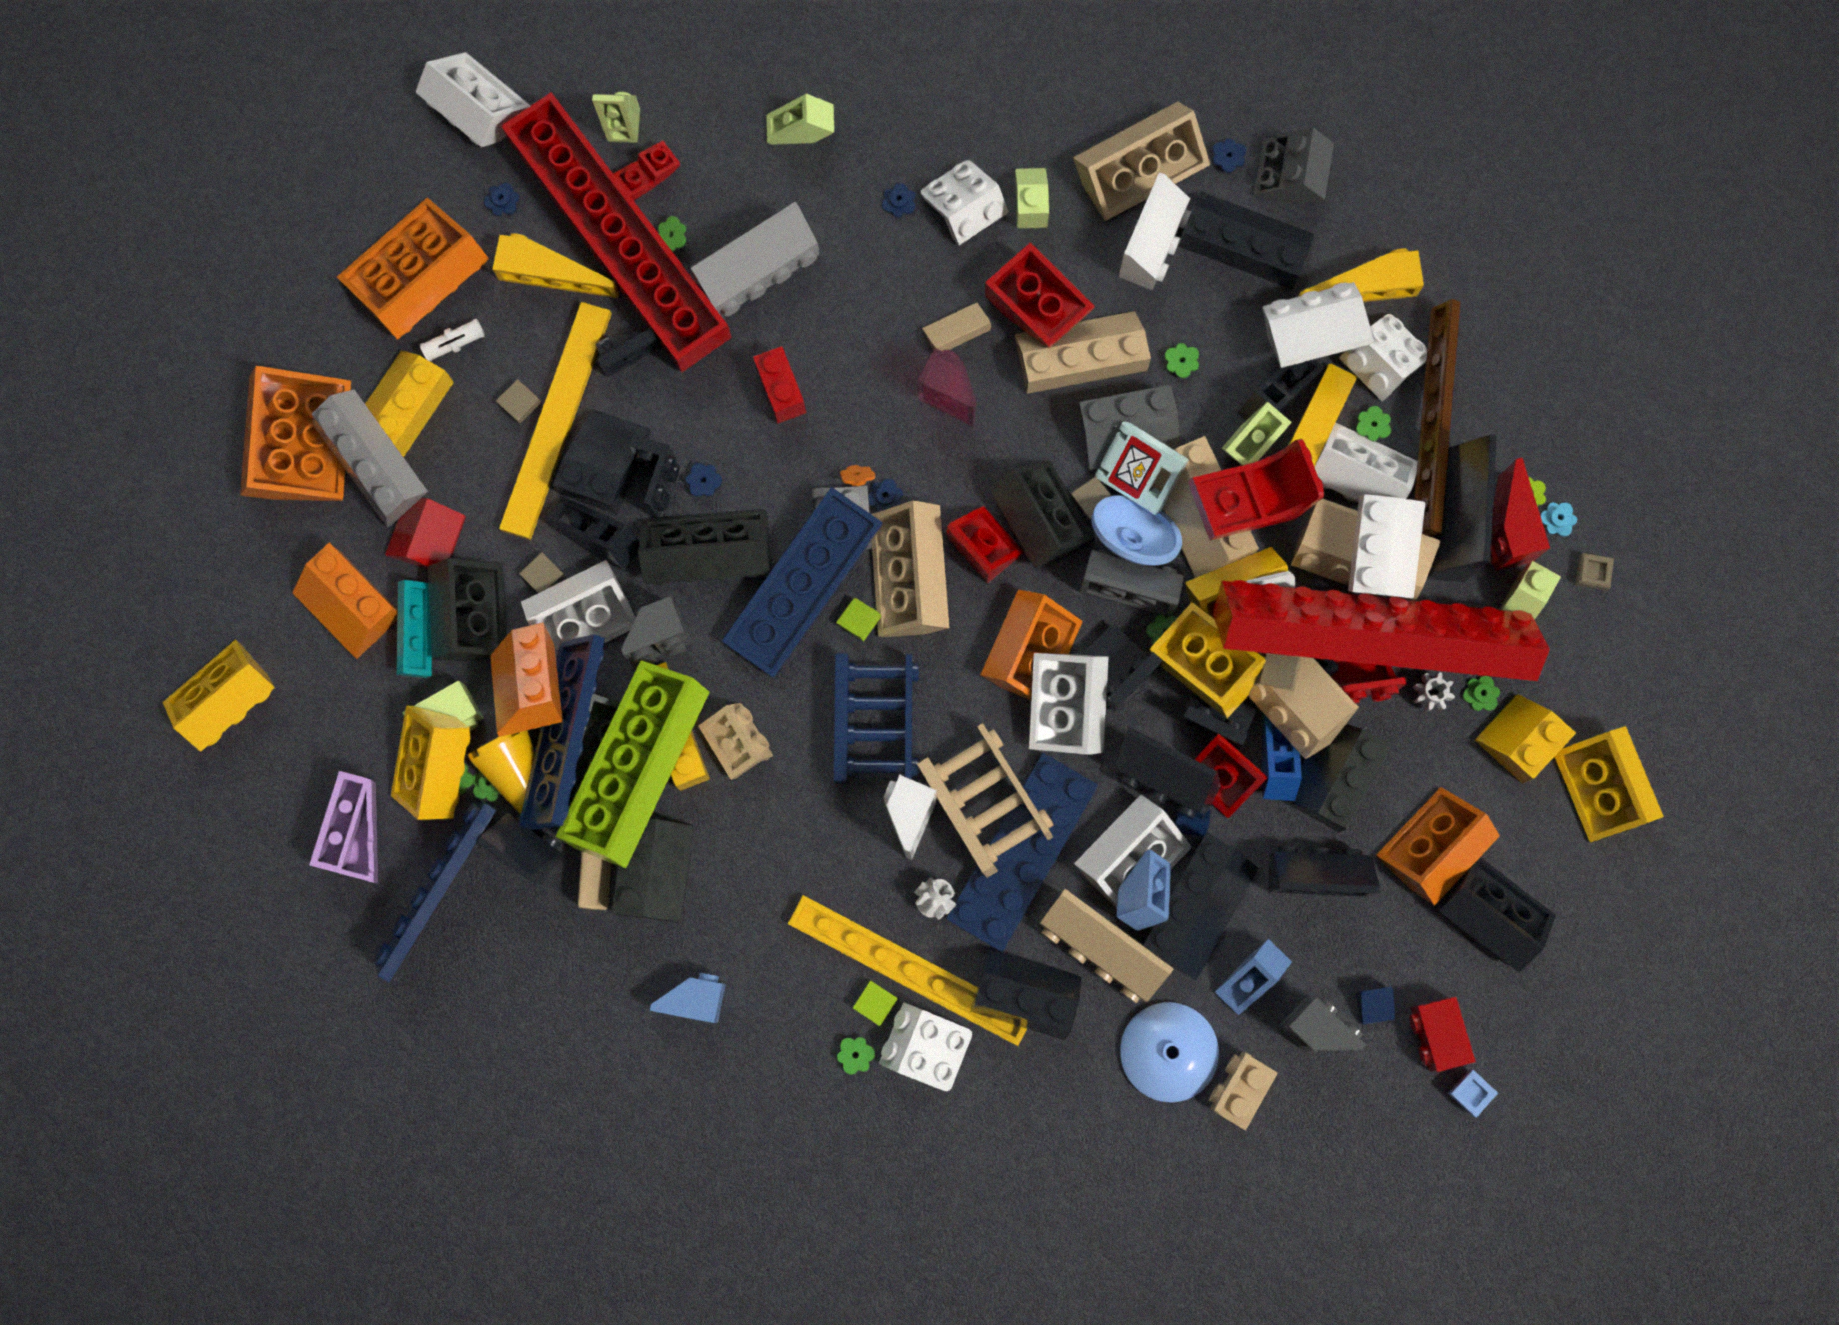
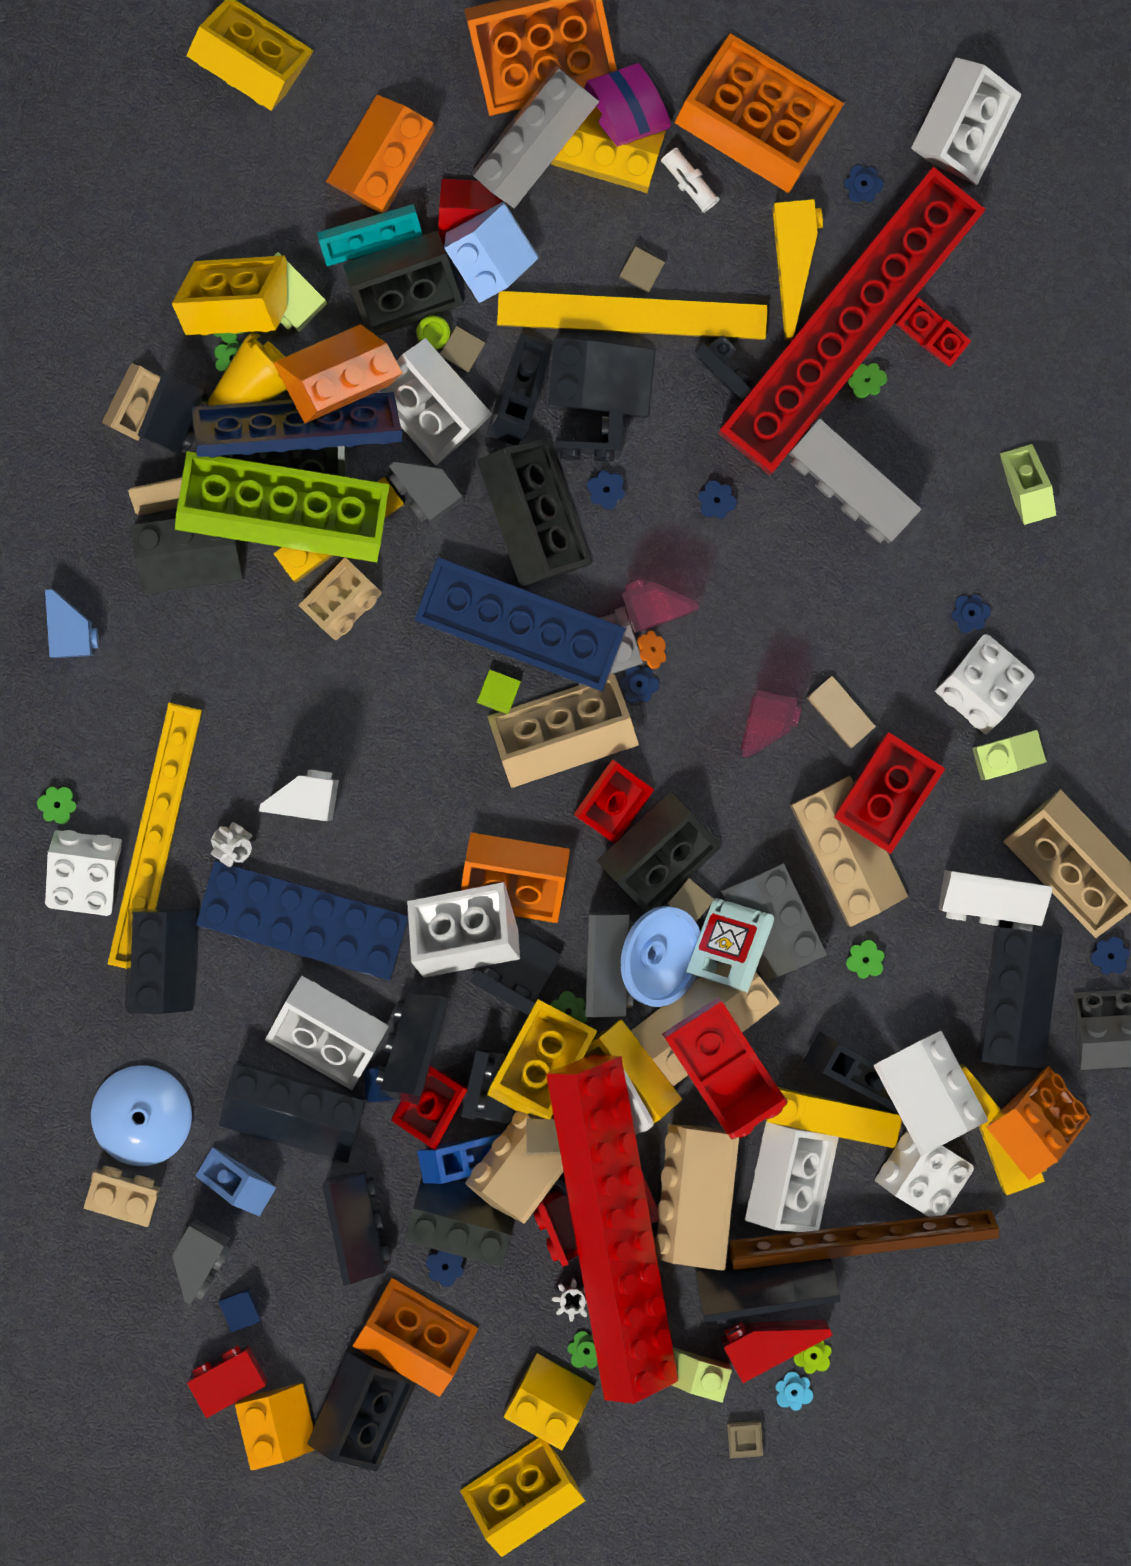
camera: 70 degrees right, 10 degrees up
(349, 830) = (143, 234): lavender wedge -> none
(370, 370) = (628, 104): none -> magenta slope
(426, 899) = (118, 342): dark blue plate -> none
(459, 521) = (490, 251): none -> light blue slope
(501, 884) = (132, 401): none -> tan slope
(516, 593) = (434, 330): none -> lime tile
(618, 116) = (985, 287): yellowish green slope -> none
(735, 381) = (714, 490): none -> dark blue plant
(780, 384) = (727, 542): red brick -> none
(816, 457) = (654, 605): none -> clear pink slope
(847, 734) = (407, 704): dark blue fence -> none
(875, 1003) = (113, 811): lime tile -> none
(970, 827) = (332, 837): tan fence -> none
(1104, 946) = (225, 1026): tan slope -> none
(1145, 892) = (289, 1054): medium blue slope -> none
(1256, 435) = (792, 1055): yellowish green slope -> none
(1367, 241) = (1039, 1123): none -> orange slope
(1374, 416) = (856, 1176): bright green plant -> none
(1385, 802) = (445, 1276): none -> dark blue plant
(1386, 546) = (700, 1216): white slope -> none
(1473, 1093) = (177, 1423): light blue plate -> none
(1495, 998) = (275, 1425): none -> light orange slope

